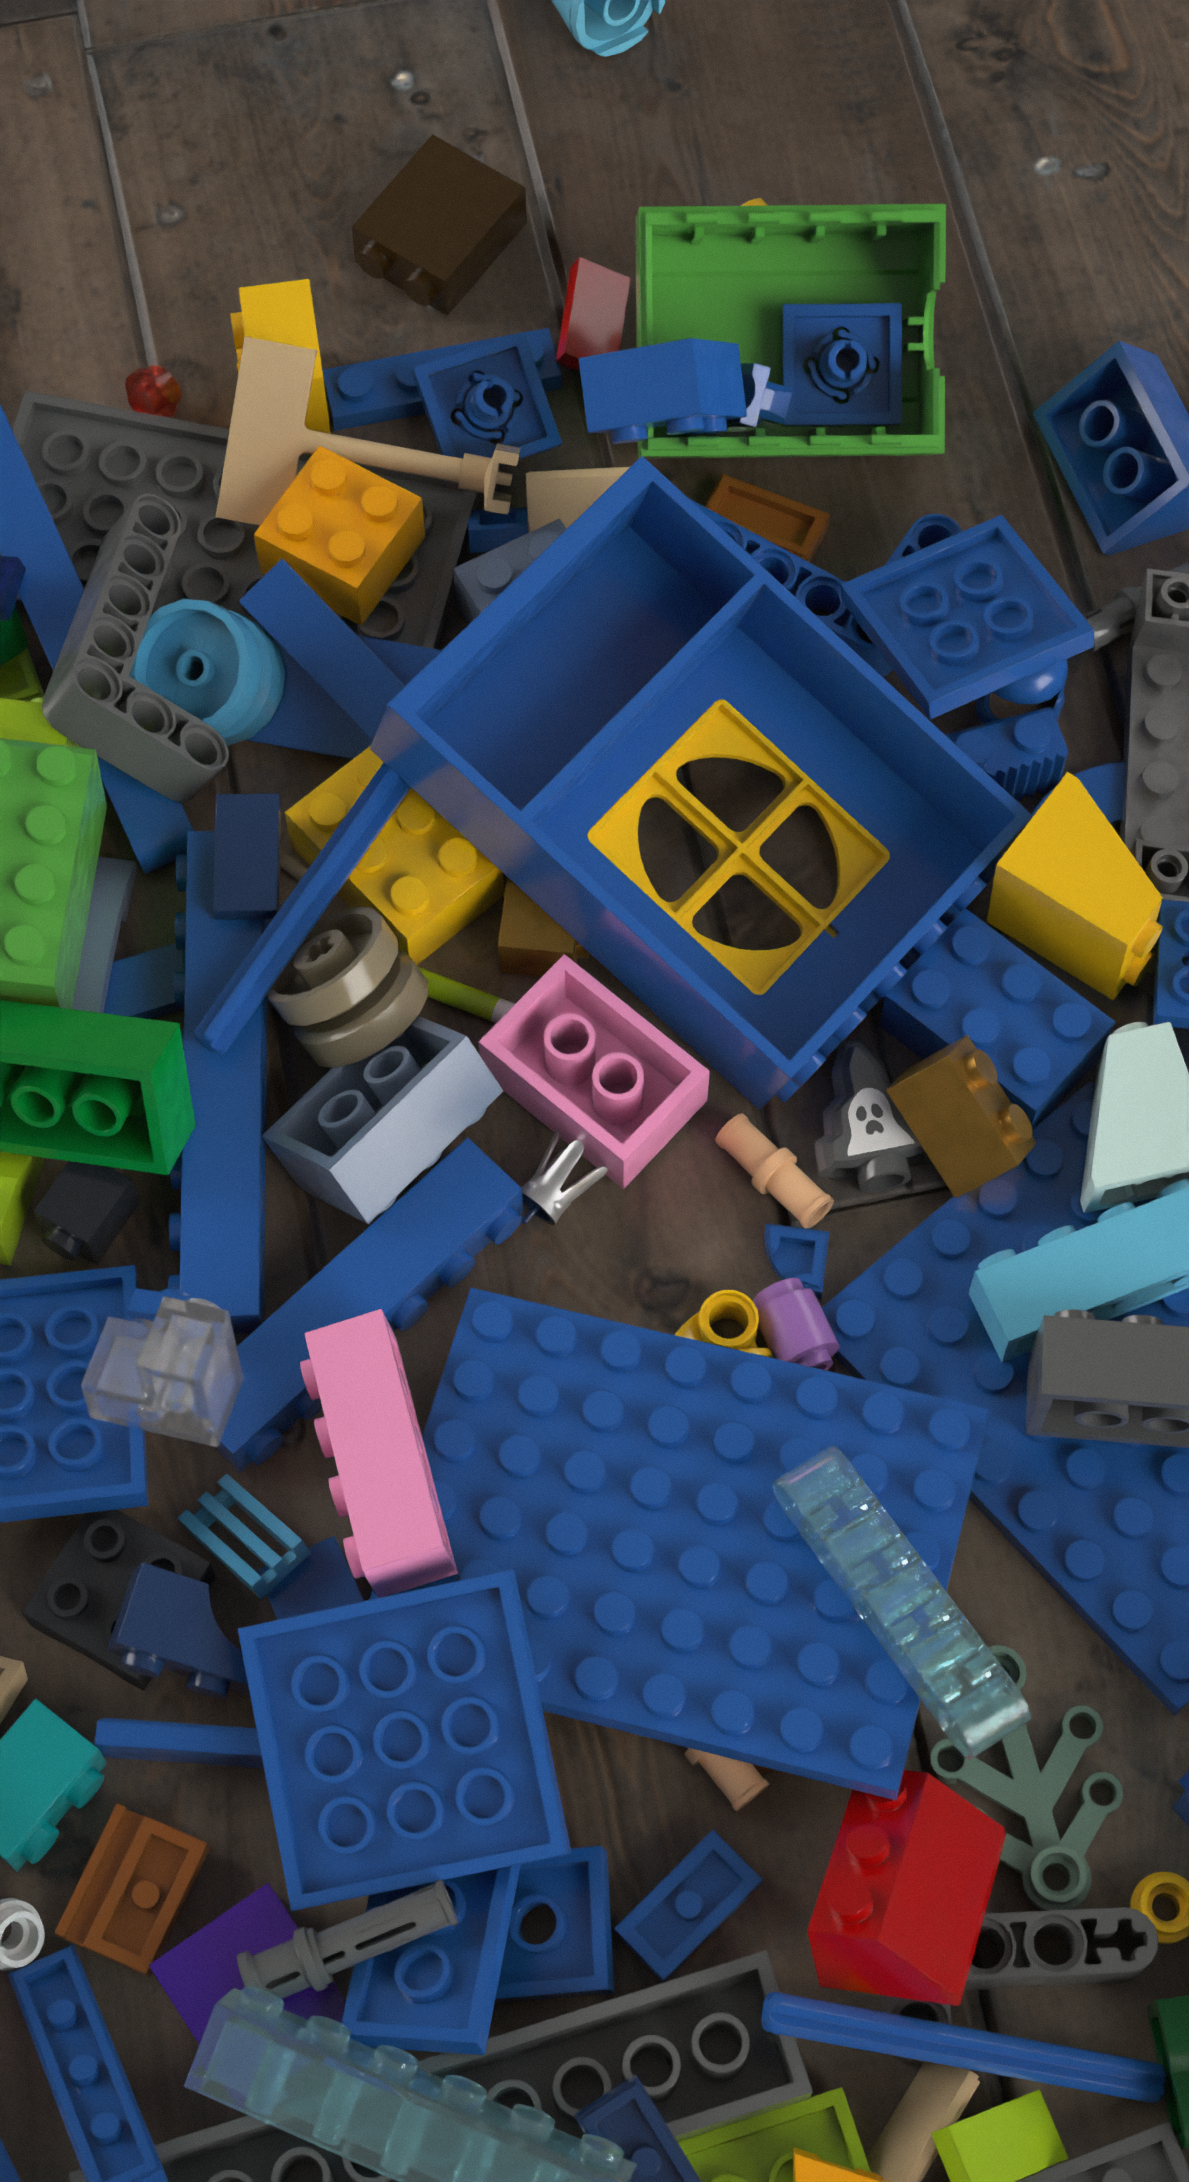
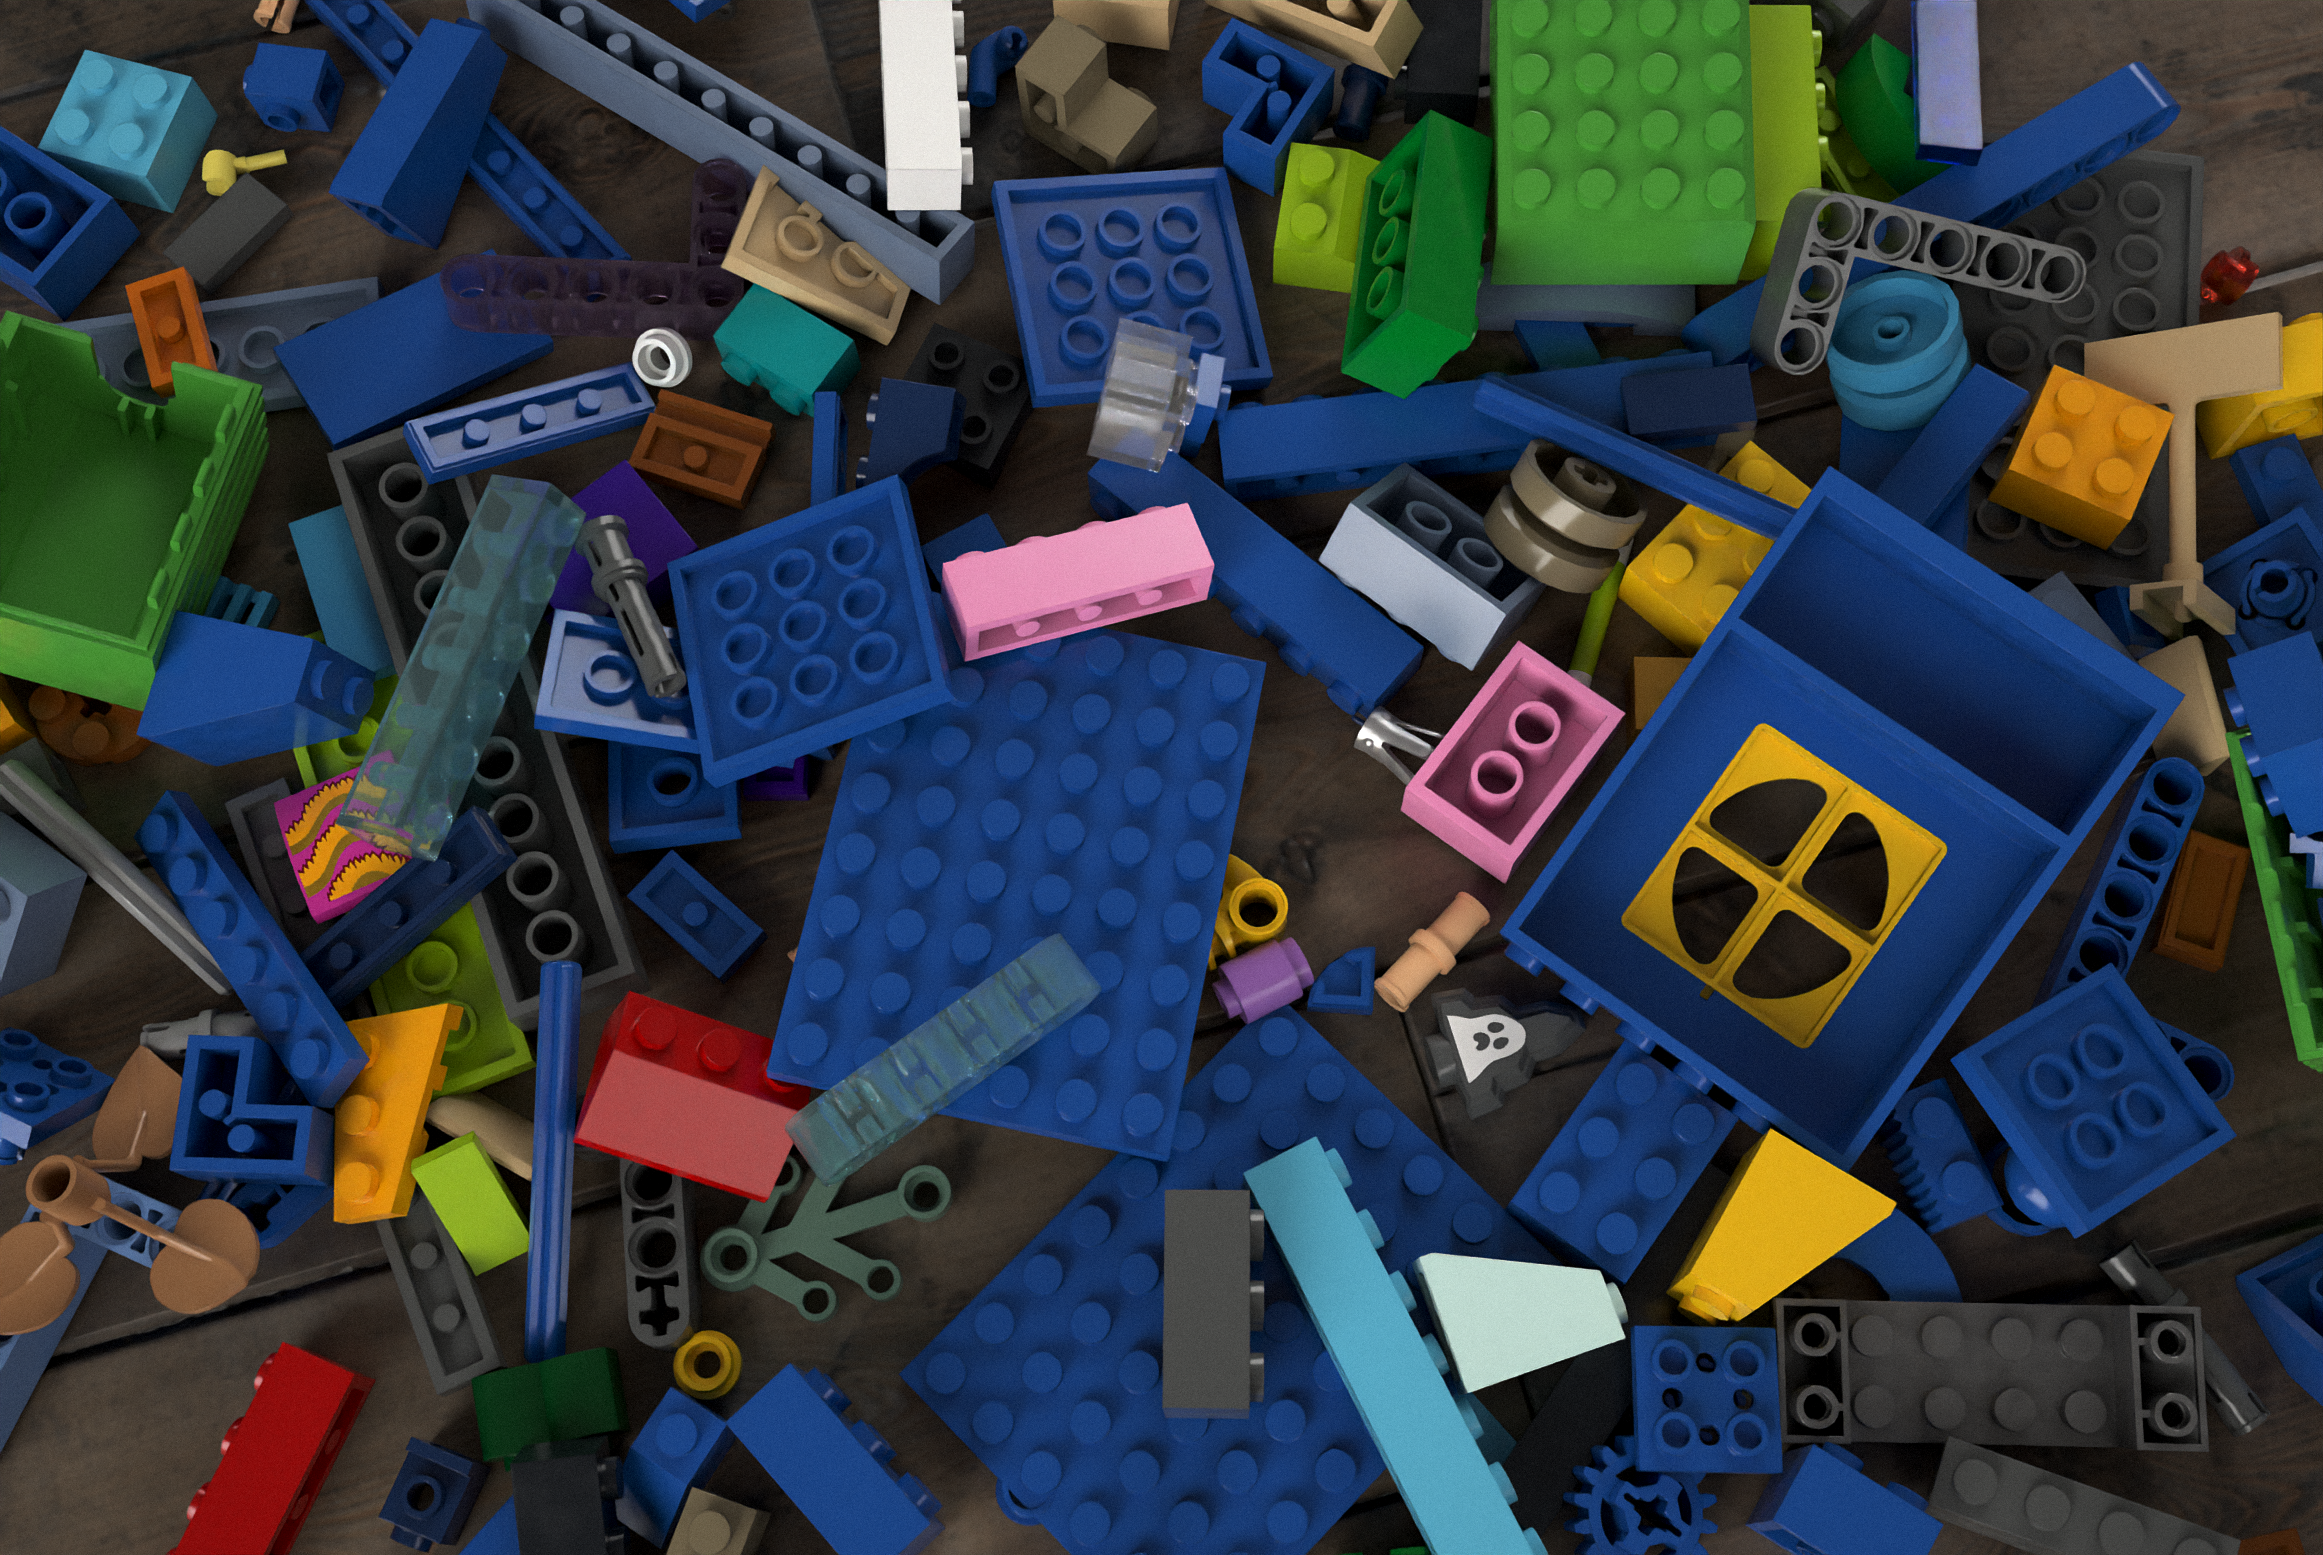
camera: 90 degrees right, 5 degrees up
(85, 1210) = (1313, 324): black brick -> none
(217, 1509) = (1006, 479): dark azure tile -> none
(962, 1116) = (1497, 1125): pearl gold brick -> none

